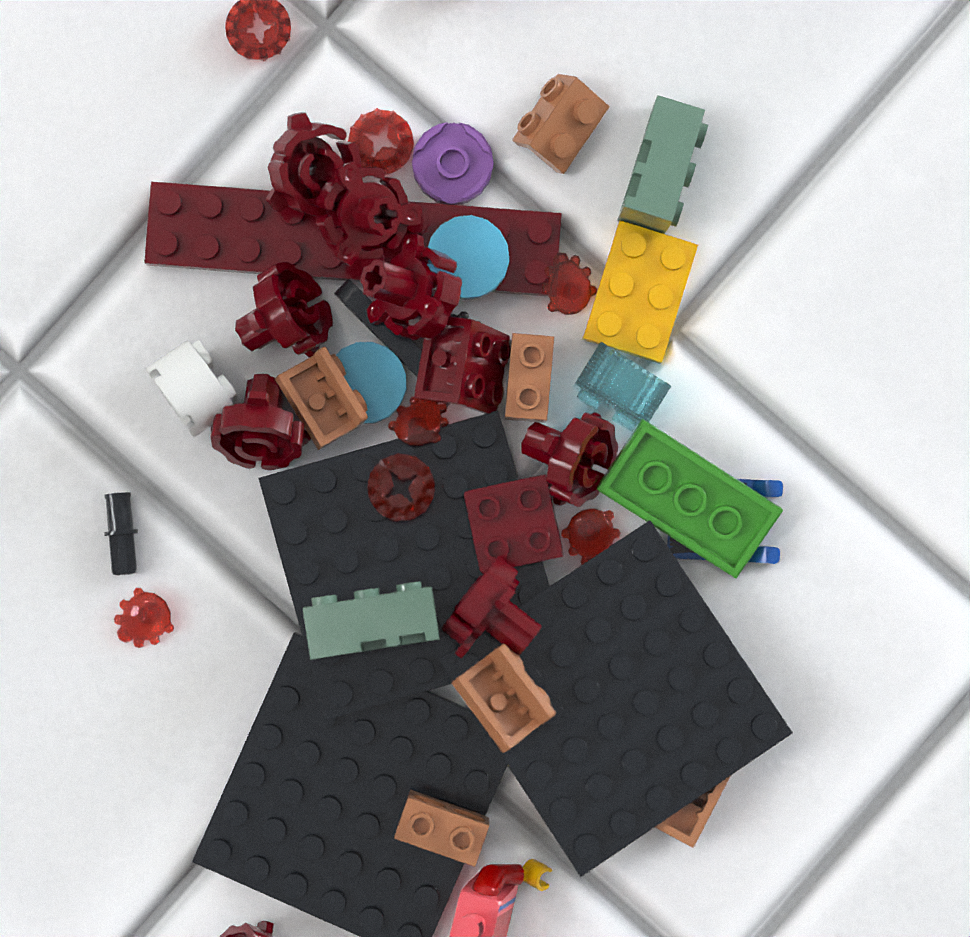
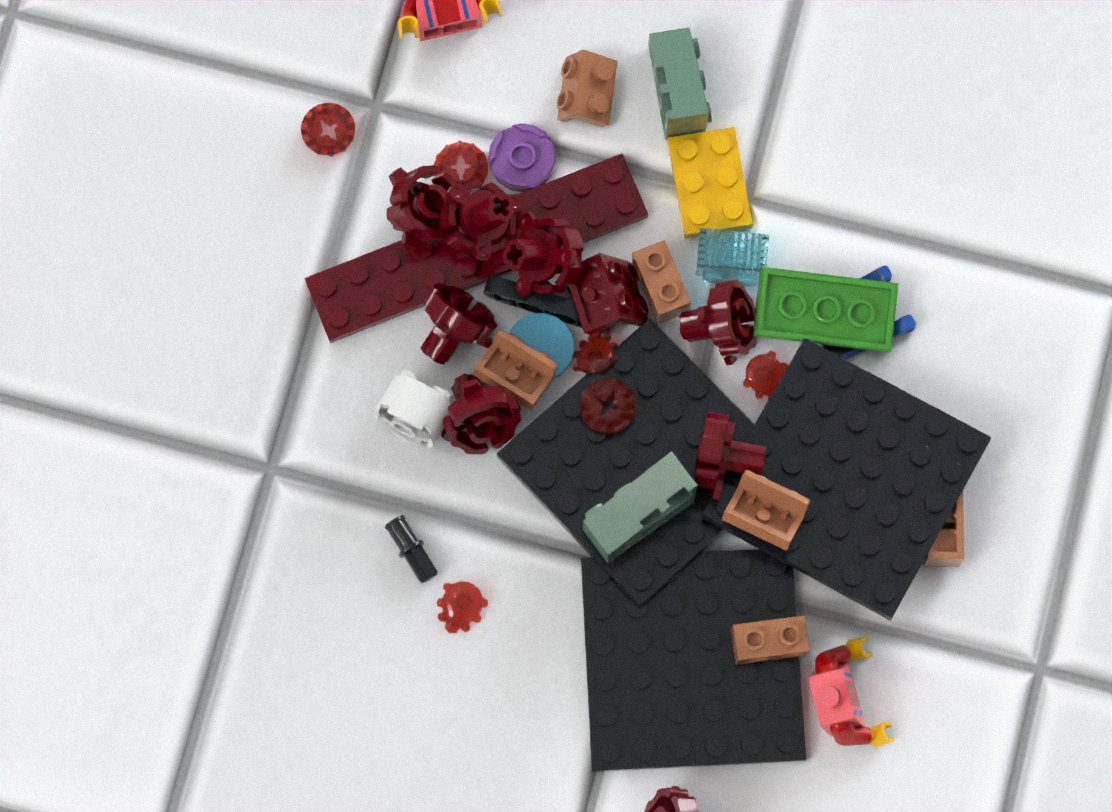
camera: 25 degrees left, 10 degrees down
(478, 251) = (577, 205): medium azure tile -> none
(514, 522) = (703, 386): dark red bracket -> none
(568, 285) = (653, 202): clear red piece -> none

